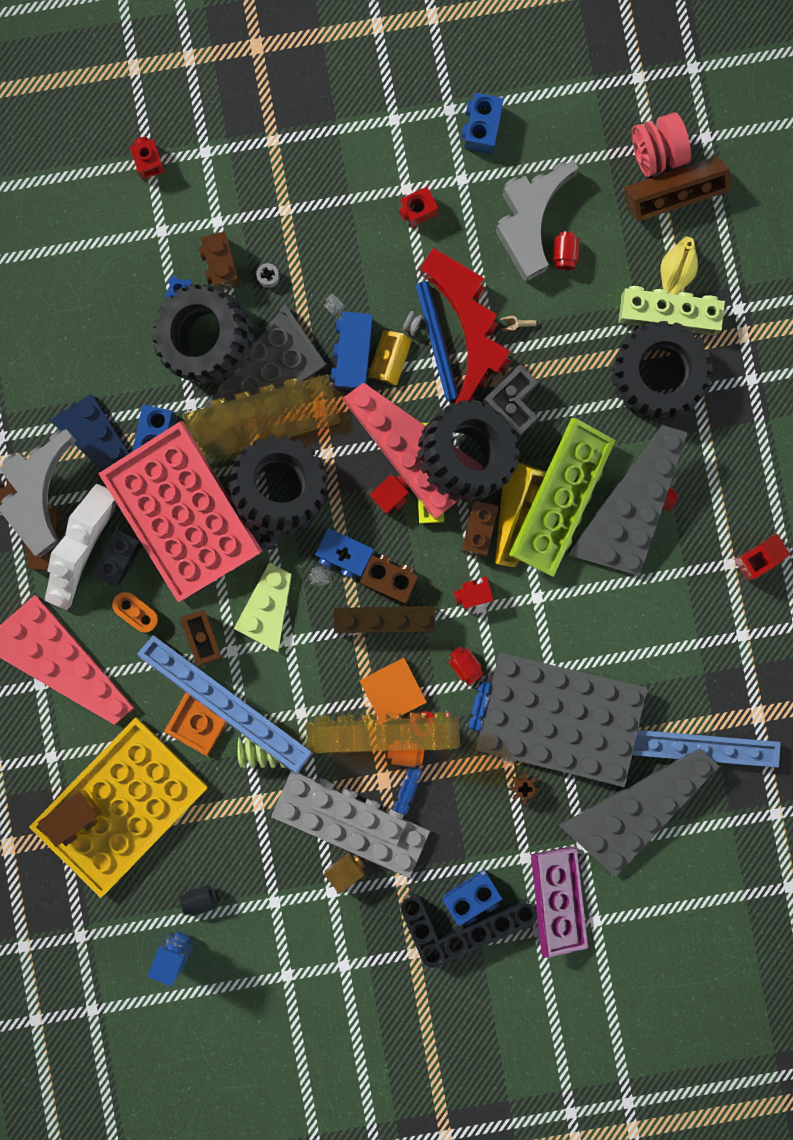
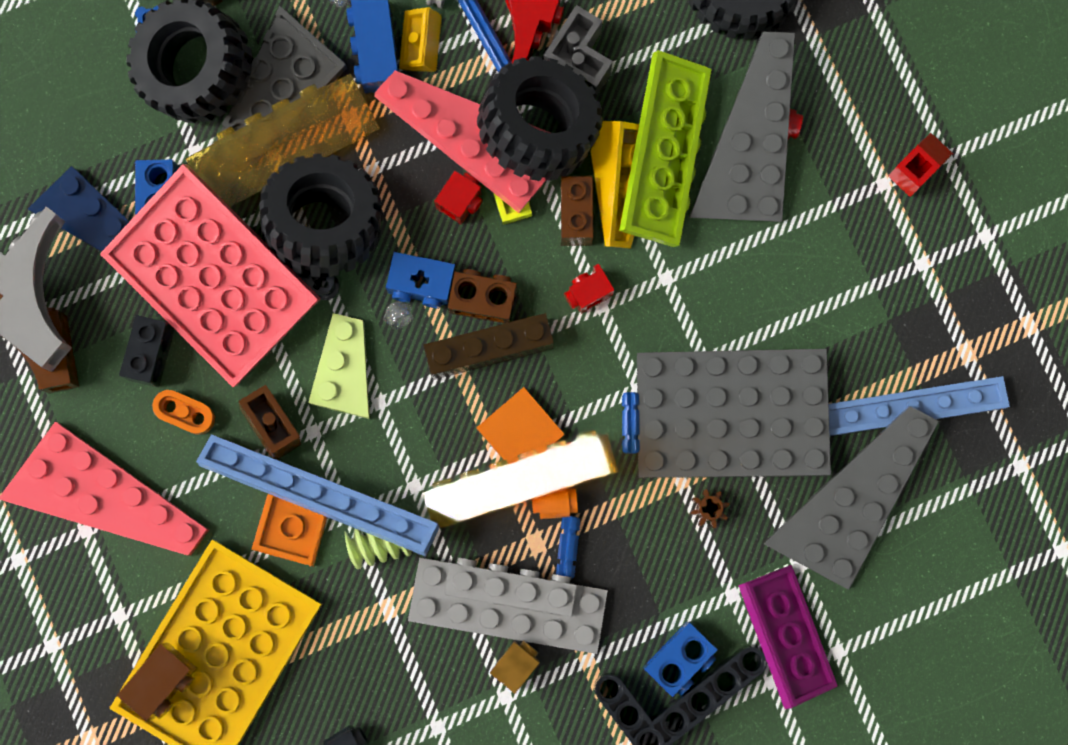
camera: 15 degrees left, 5 degrees down
(75, 548) = (89, 352): white arch -> none
(465, 665) = (600, 377): red brick -> none

